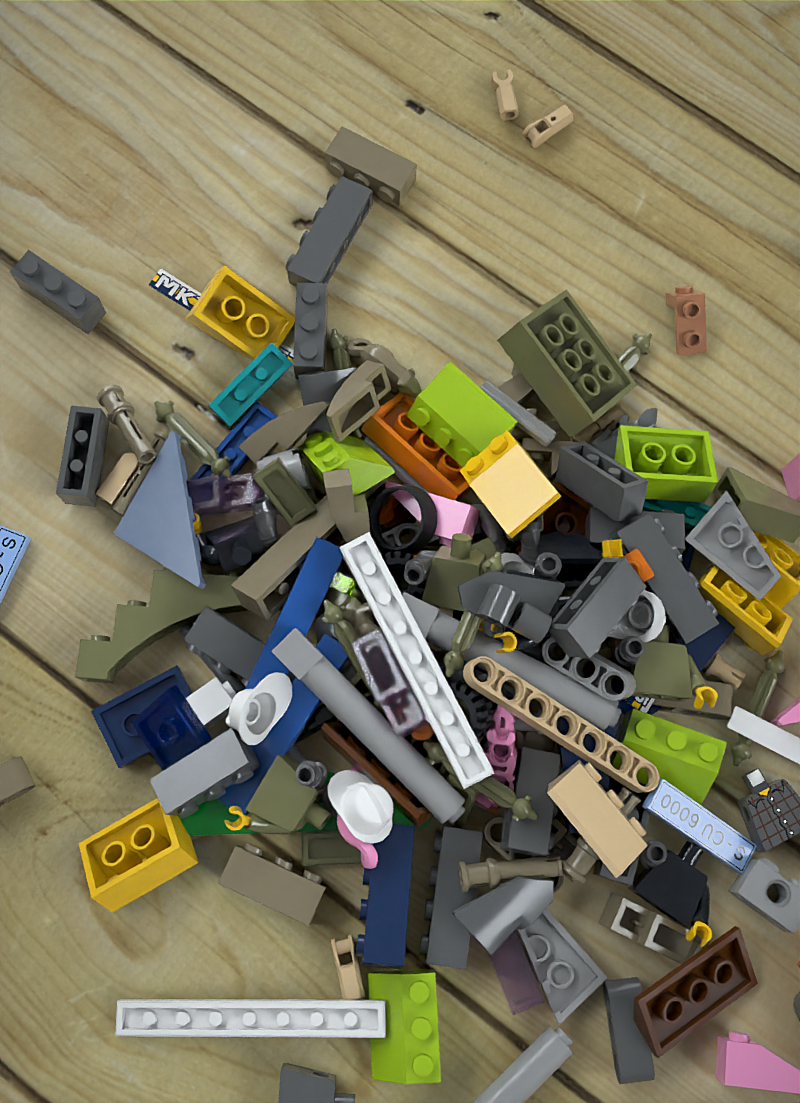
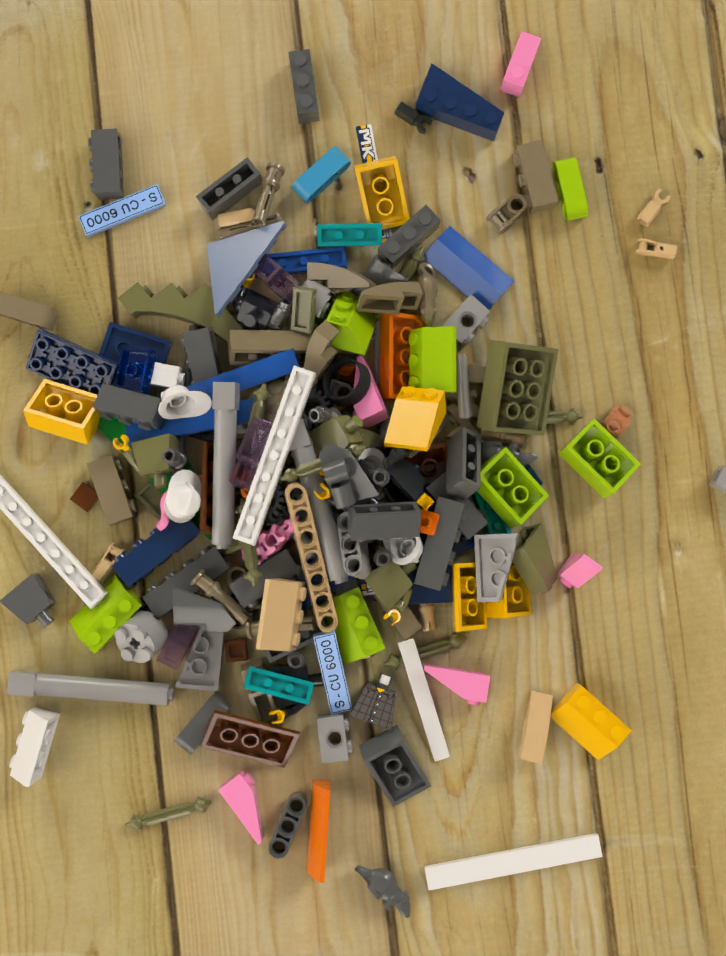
camera: 50 degrees right, 10 degrees up
(90, 798) = (69, 363): none -> dark blue tile
(162, 357) = (321, 174): none -> dark azure beam
(193, 439) = (292, 234): olive wheel -> none
(196, 223) = (412, 116): none -> pearl dark grey bar
(229, 171) = (457, 105): none -> dark blue wedge
(249, 86) = (520, 64): none -> bright pink slope
(250, 923) = (85, 497): none -> reddish brown tile
(331, 233) = (474, 194): dark grey brick -> none
(343, 583) = (281, 383): clear neon green piece -> none
(380, 224) = (504, 216): none -> dark tan piece
(398, 309) = (467, 268): none -> blue slope
(427, 151) = (570, 189): none -> lime beam
(445, 338) = (471, 309): none -> light grey brick
(470, 1008) = (141, 637): none -> light grey brick
(577, 913) = (236, 650): none -> reddish brown tile
(666, 898) = (279, 685): none -> teal plate
(712, 354) = (599, 459): none -> lime slope

